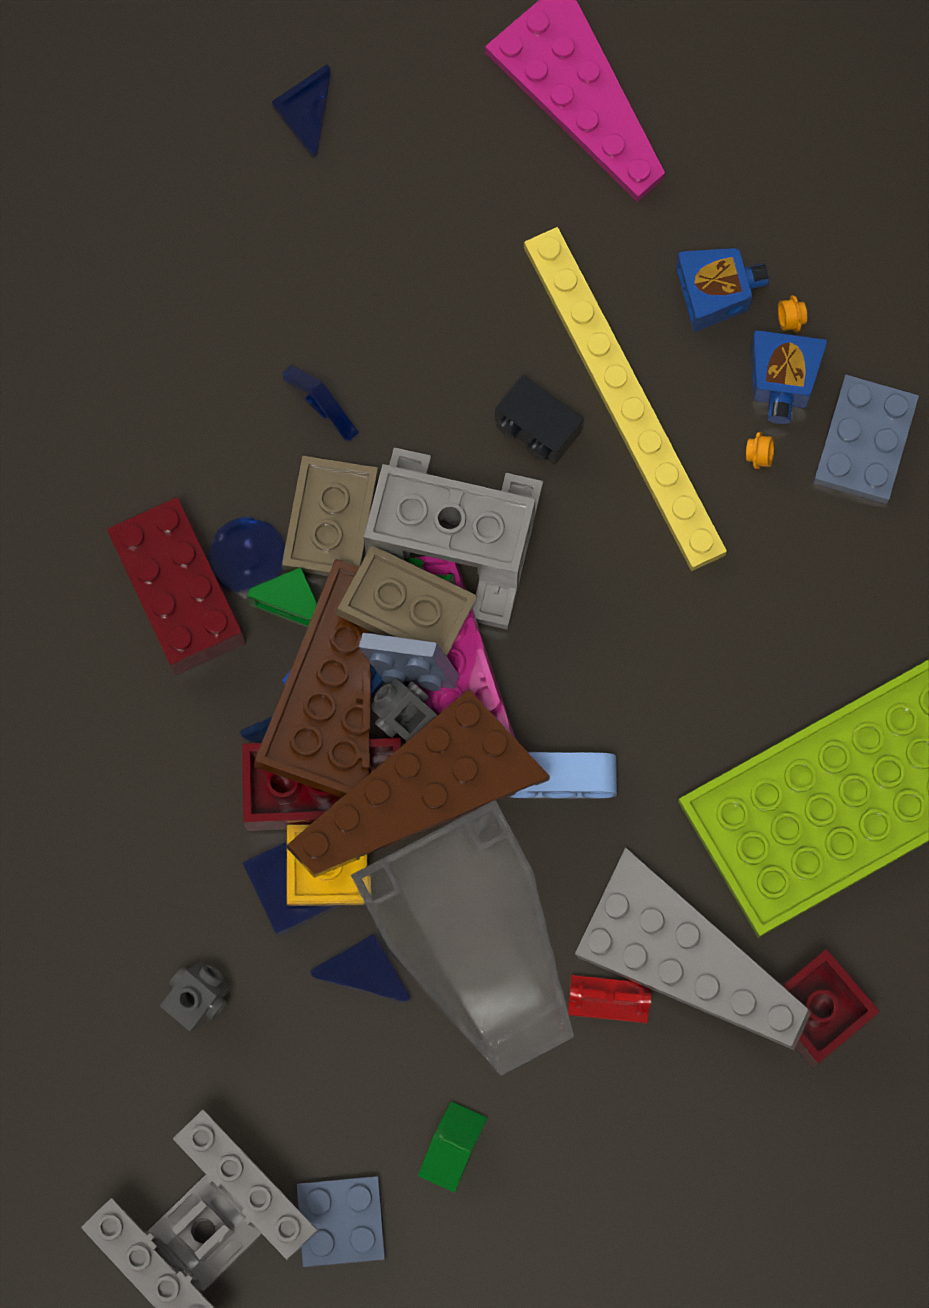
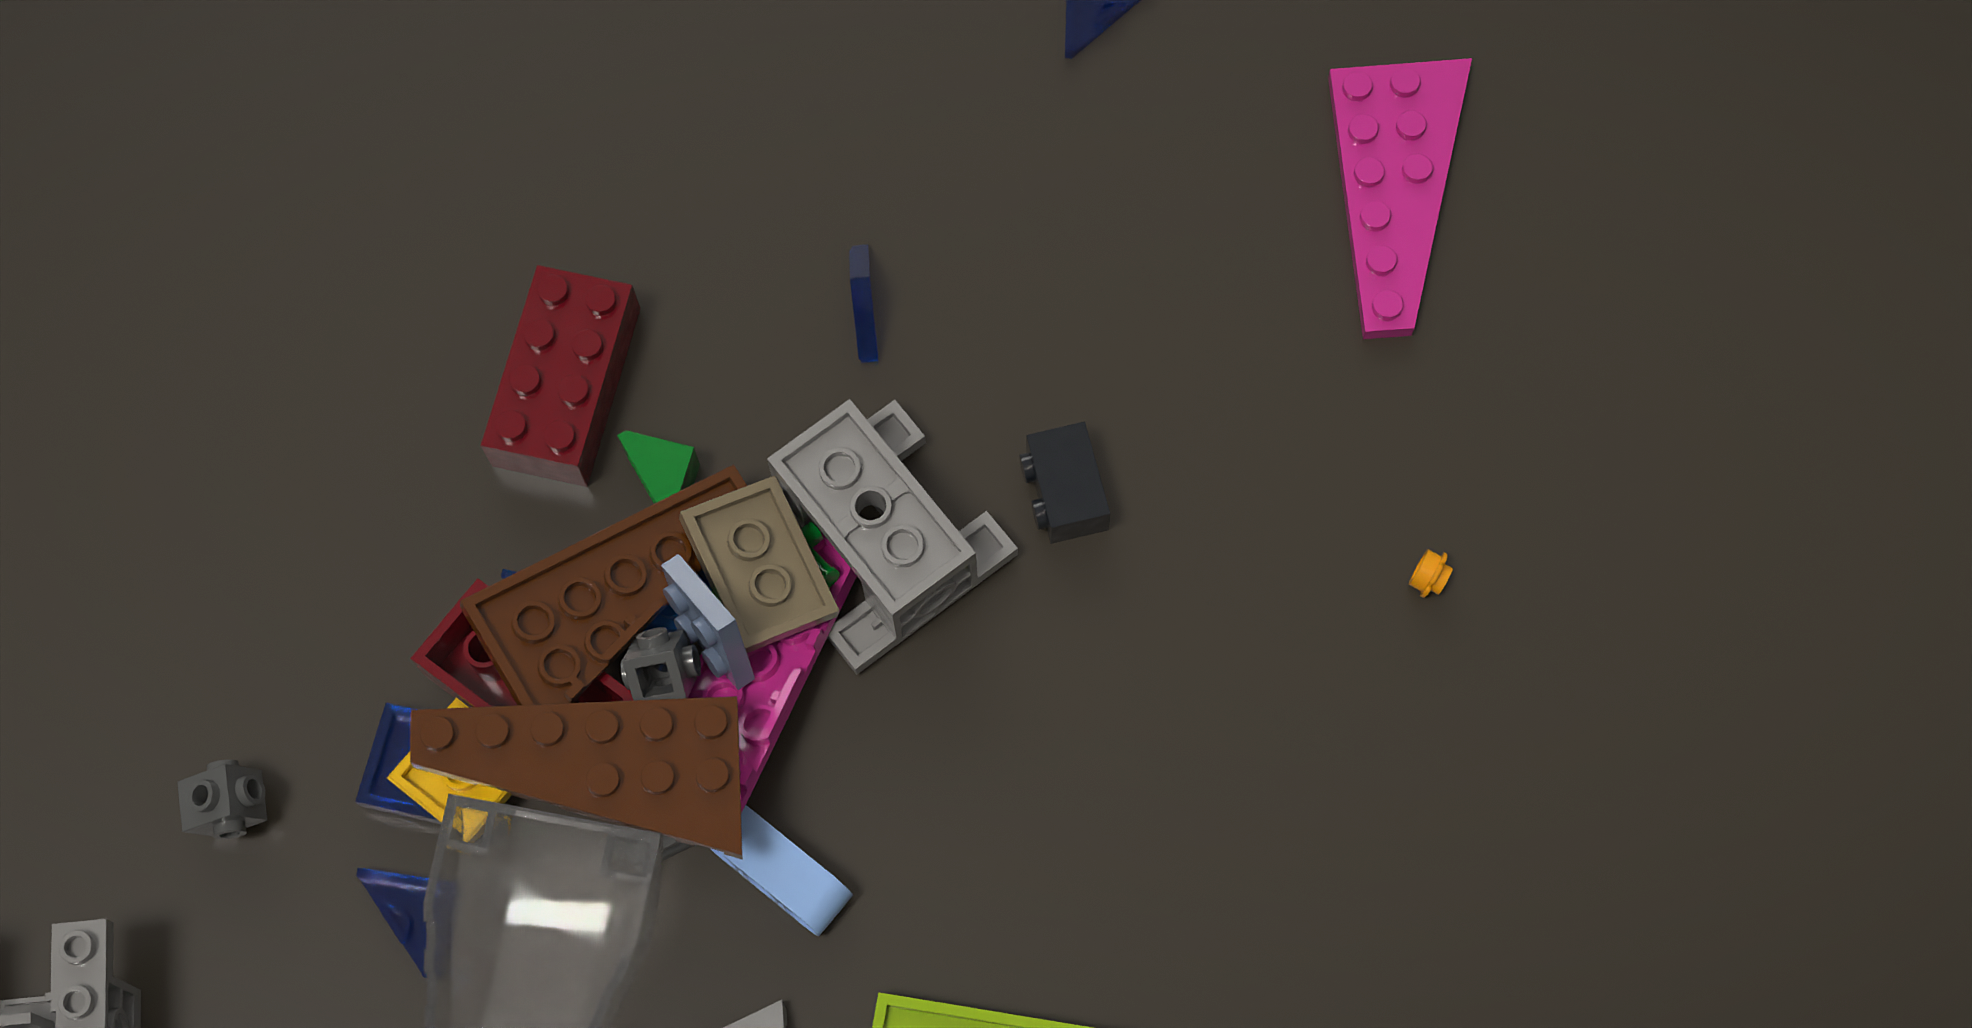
camera: 40 degrees right, 5 degrees down
(246, 554) = (663, 397): clear blue tile -> none
(329, 515) = (766, 414): dark tan plate -> none
(625, 399) = (1177, 535): light yellow plate -> none
(717, 284) = (1373, 483): torso -> none
(760, 451) = (1277, 691): light orange plate -> none
(784, 371) = (1372, 627): torso -> none
(866, 439) = (1404, 766): sand blue plate -> none

